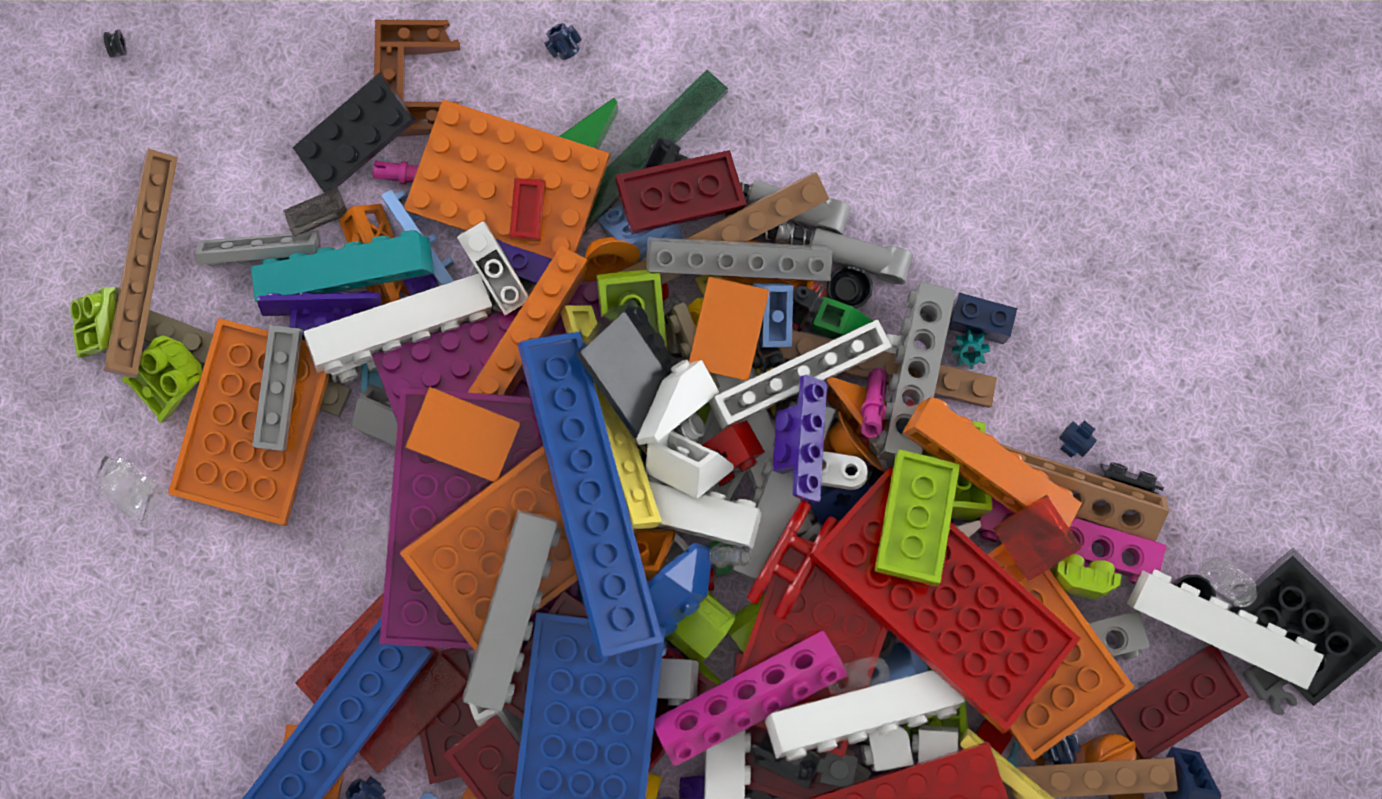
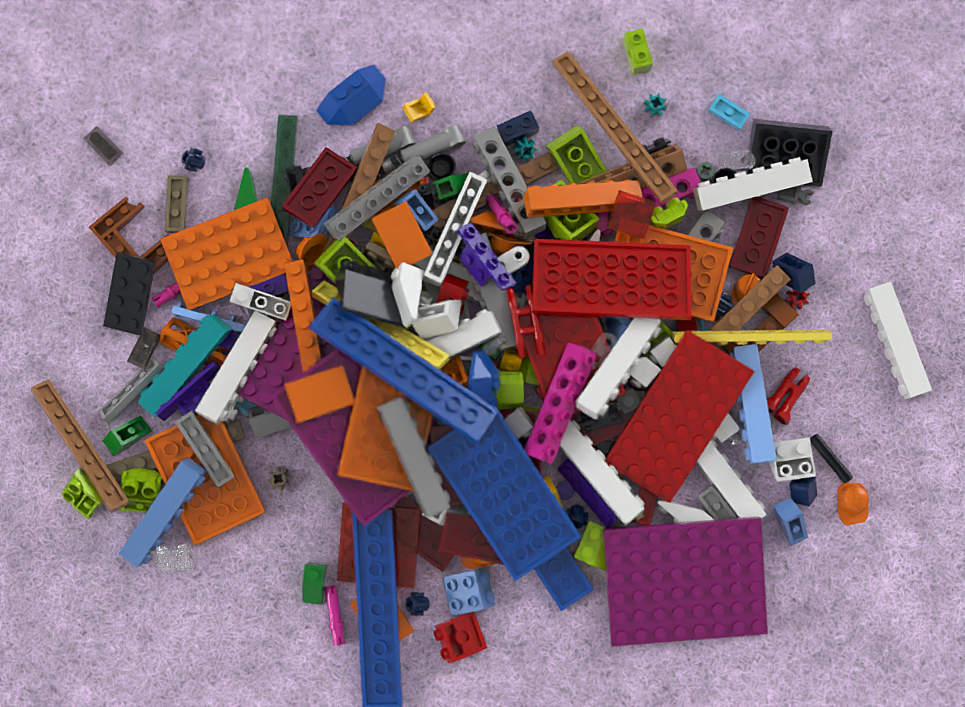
camera: 35 degrees left, 5 degrees up
(165, 422) = (163, 512): none -> medium blue brick
(205, 296) = (126, 435): none -> green slope
(255, 724) = (334, 615): none -> dark pink pin
(266, 661) = (313, 583): none -> green slope
(328, 495) = (285, 477): none -> dark tan gear
(499, 75) = (176, 203): none -> dark tan plate
(527, 209) = (251, 259): red tile -> none
(734, 593) = (510, 360): none -> yellow bracket
(814, 121) = (353, 97): none -> blue wedge
(882, 197) = (419, 108): none -> yellow bracket
(917, 518) = (568, 251): lime plate -> none
(1027, 409) = (575, 155): none -> lime slope
(1077, 439) = (610, 151): dark blue gear -> none
(1105, 417) = (615, 127): none -> medium nougat plate
(1170, 429) = (657, 99): none -> teal gear
(1183, 557) = (707, 166): none -> sand green bush
(1211, 345) = (637, 51): none -> lime brick
(1267, 514) = (729, 112): none -> medium azure plate

